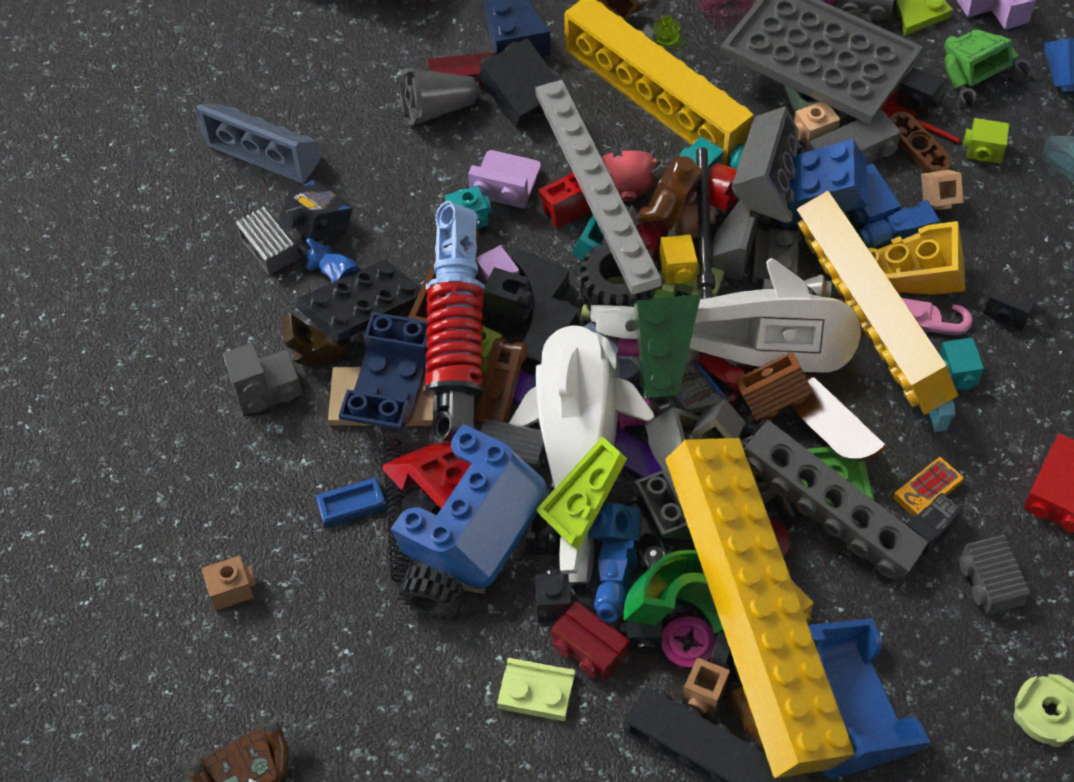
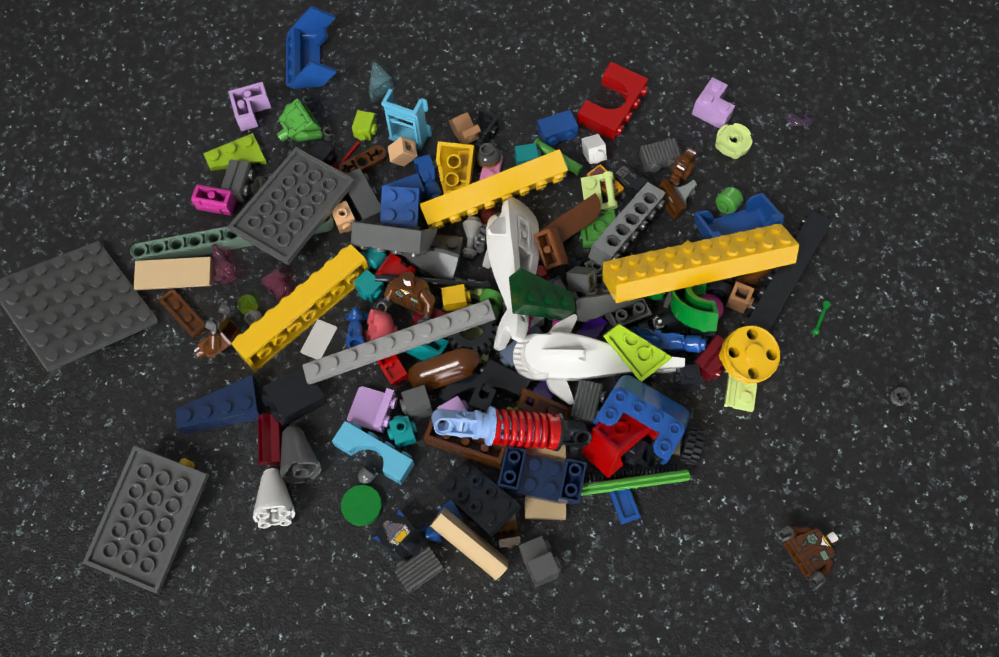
camera: 90 degrees left, 10 degrees up
(229, 582) = (688, 572): medium nougat brick -> none
(258, 141) = (328, 582): sand blue slope -> none
(302, 273) = (470, 543): none -> tan brick
(365, 176) = (361, 505): none -> green tile
(371, 73) = (273, 501): none -> white cone
(375, 507) = (635, 482): none -> bright green axle
(408, 177) = (365, 476): none -> dark grey hinge
(418, 205) = (352, 440): none -> medium azure arch
(506, 219) = (416, 403): none -> dark grey brick
(558, 248) = (444, 369): none -> reddish brown brick
(587, 684) = (750, 354): none -> yellow piece
(616, 115) = (318, 339): none -> white sticker
(616, 145) = (355, 330): none -> blue animal
(700, 54) = (276, 283): none -> clear pink piece
(902, 471) = (592, 185): none -> yellowish green plate
(909, 598) = (676, 197): none -> reddish brown piece
(911, 688) = (729, 200): none -> bright green head
(954, 307) = (488, 155): none -> dark grey piece
(966, 601) = (683, 167): none -> reddish brown gear
(970, 411) = (545, 149): none -> bright green pin
(989, 462) = (594, 149): none -> white brick
(990, 172) = (416, 116): none -> medium azure piece
(1002, 272) = (464, 128): none -> medium nougat brick
(1026, 410) = (557, 128): none -> blue brick

